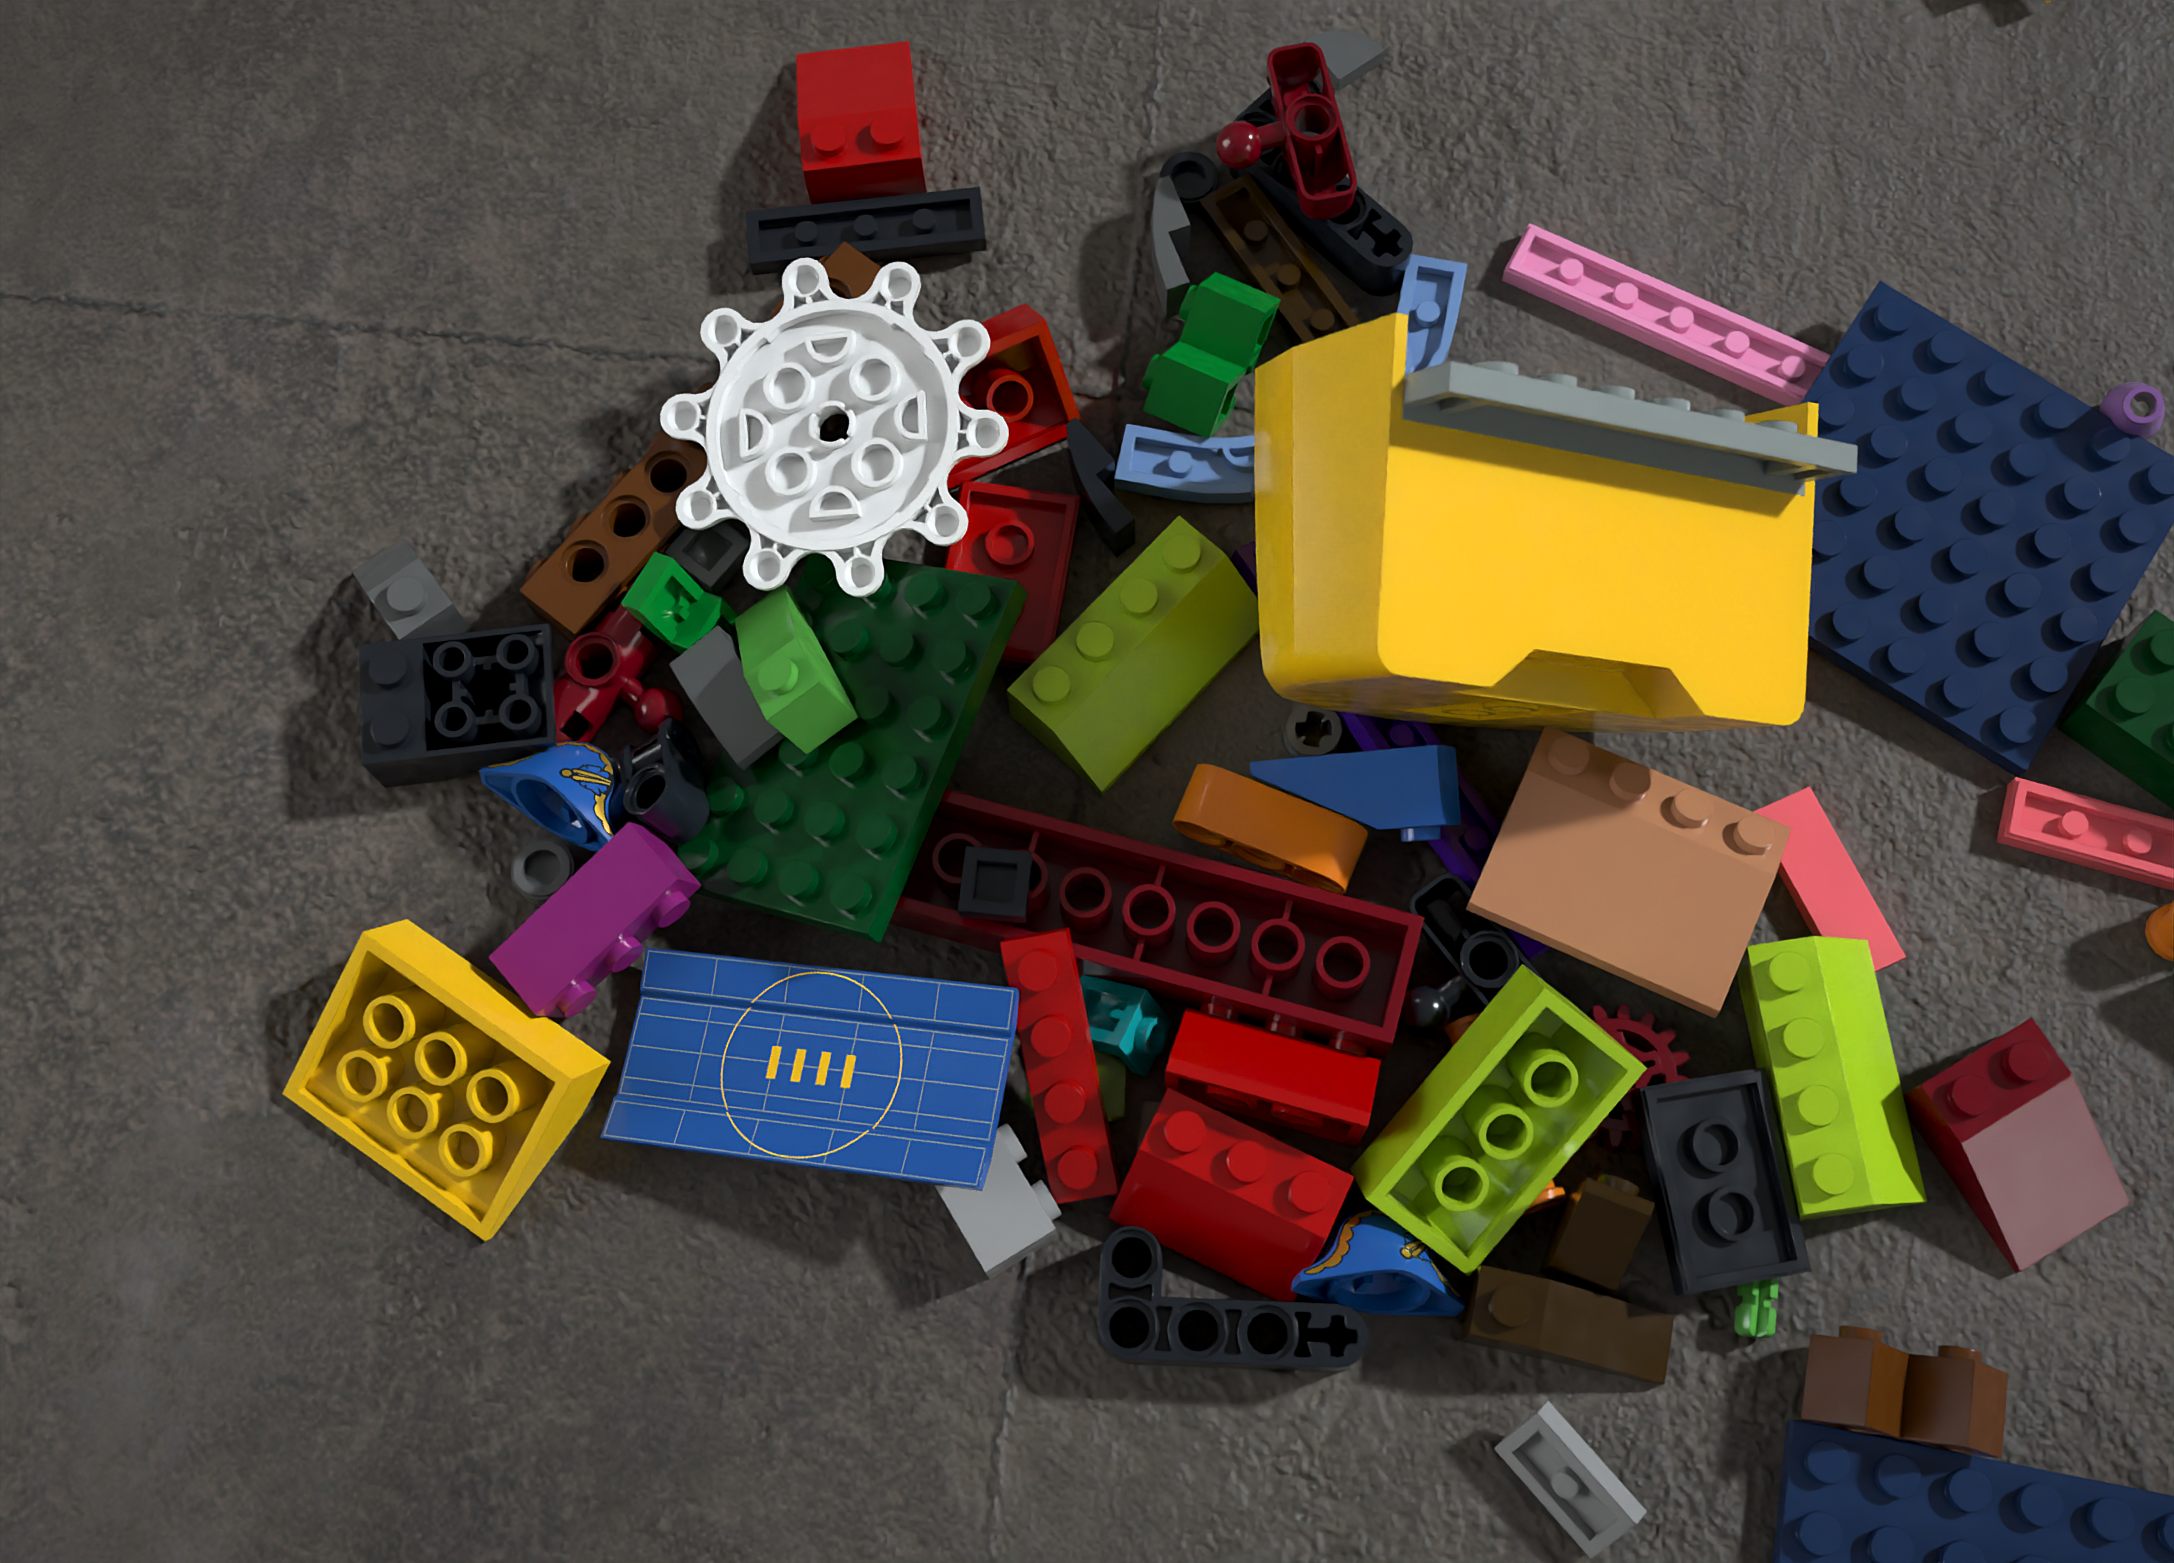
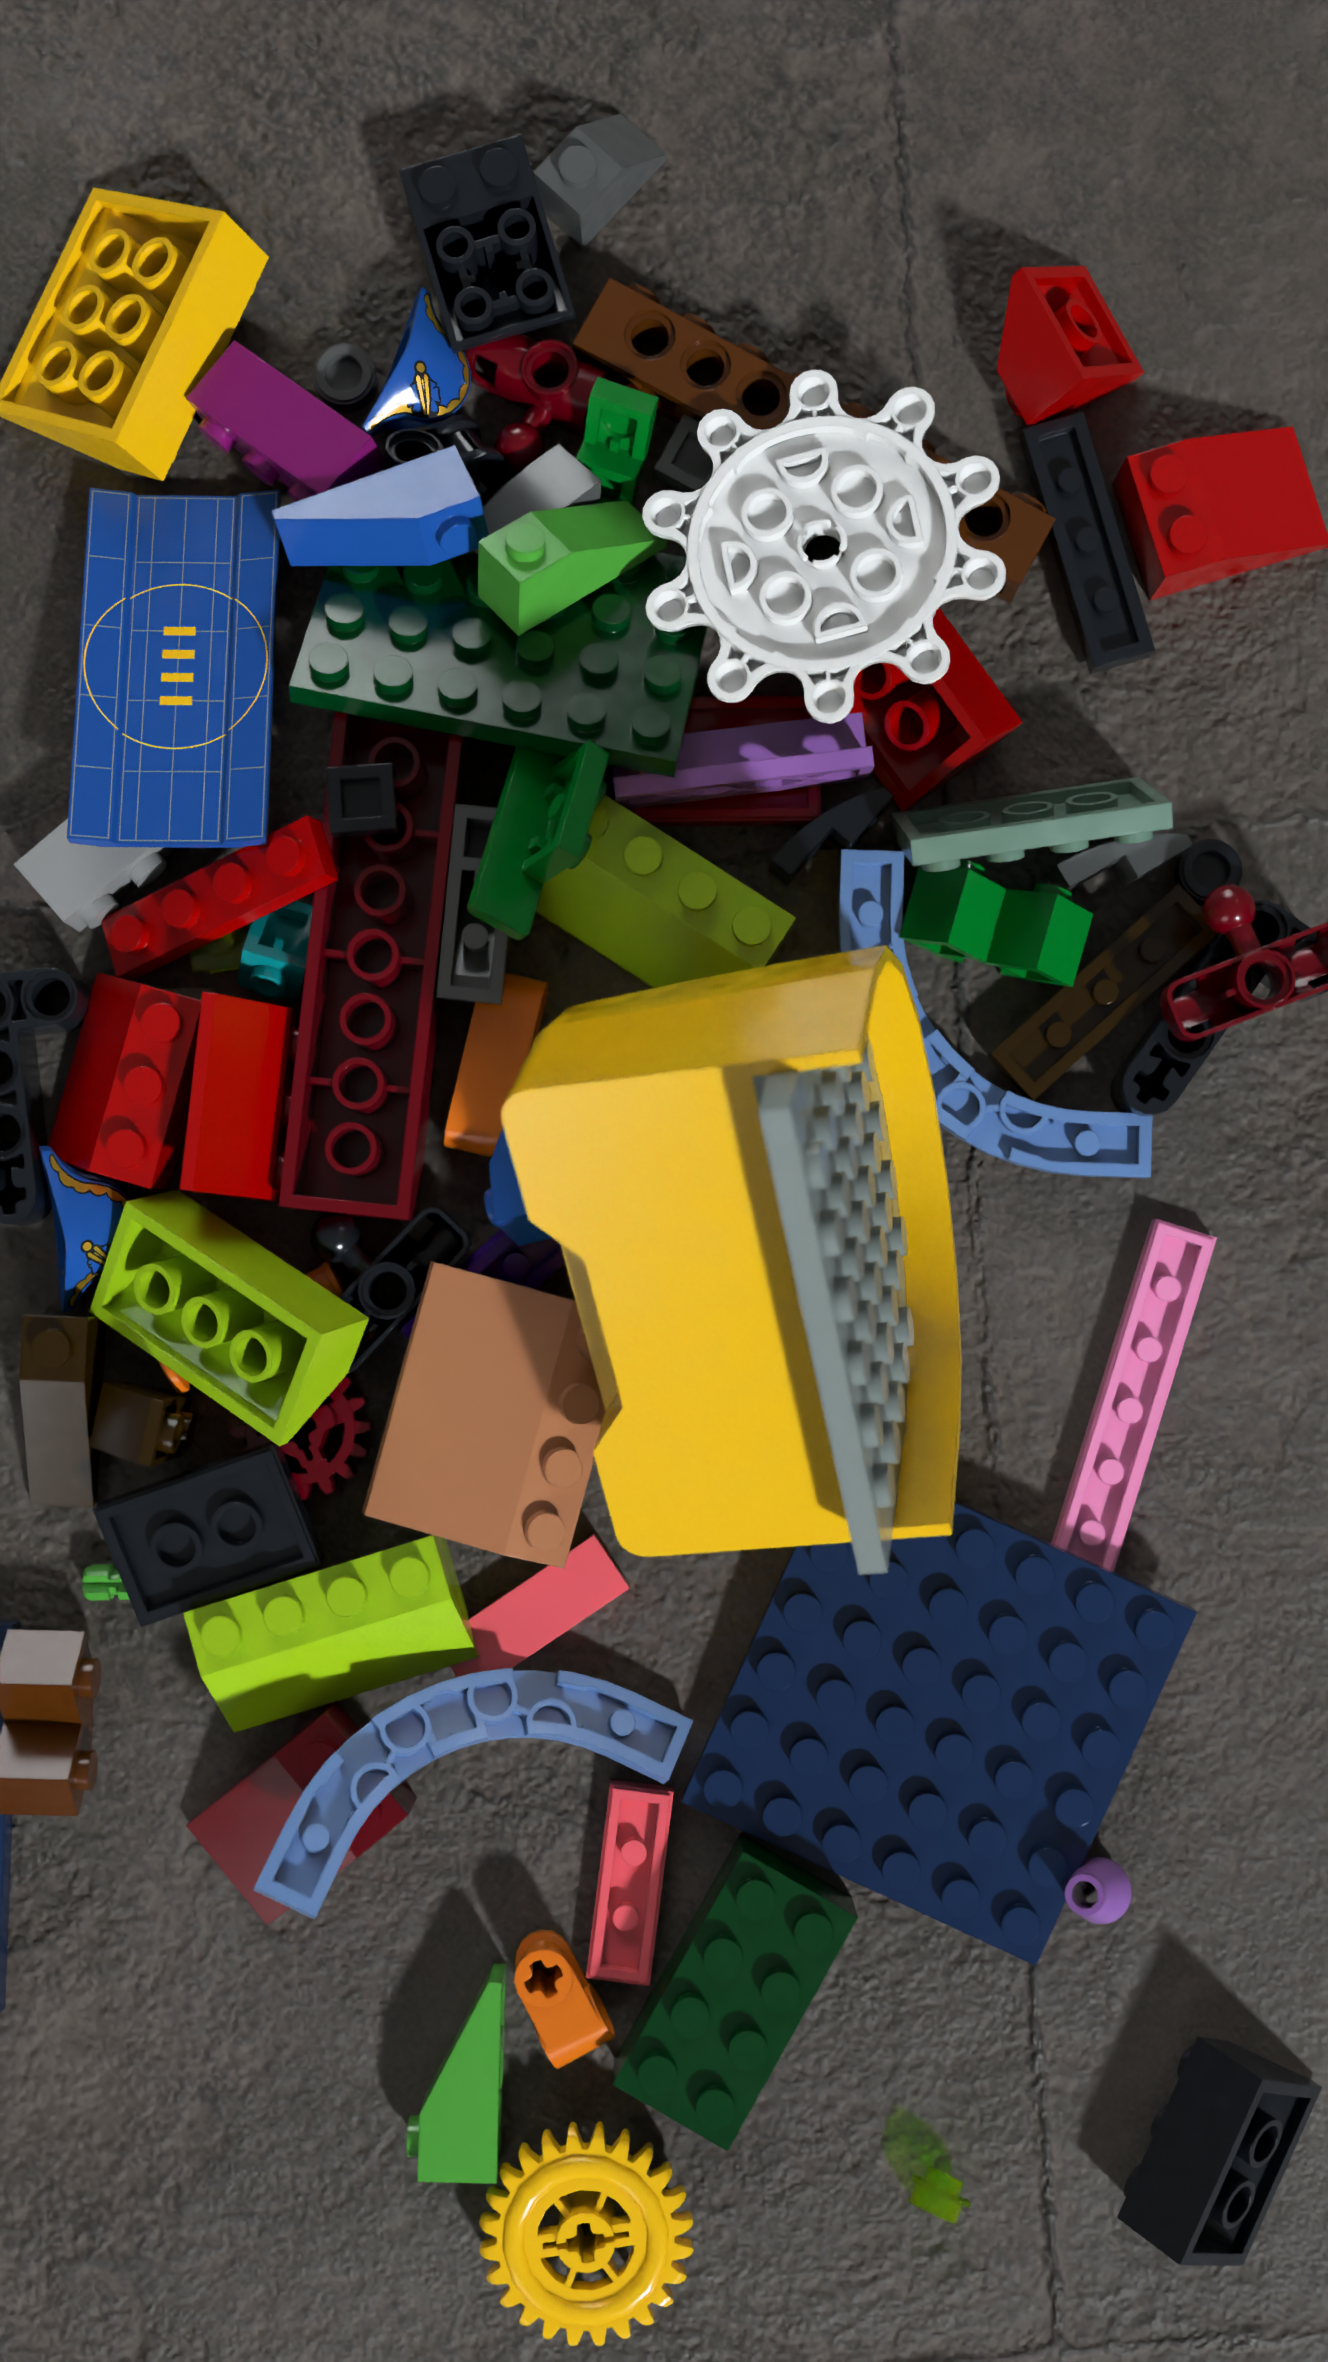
camera: 80 degrees right, 15 degrees up
(682, 222) = (1060, 344): none -> red slope
(715, 814) = (390, 518): none -> blue slope
(1016, 534) = (753, 762): none -> medium lavender fence
(1059, 713) = (536, 832): none -> green bracket
(1115, 801) = (471, 950): none -> dark grey slope
(1123, 306) = (1010, 824): none -> sand green plate
(1943, 987) = (440, 1721): none -> medium blue plate

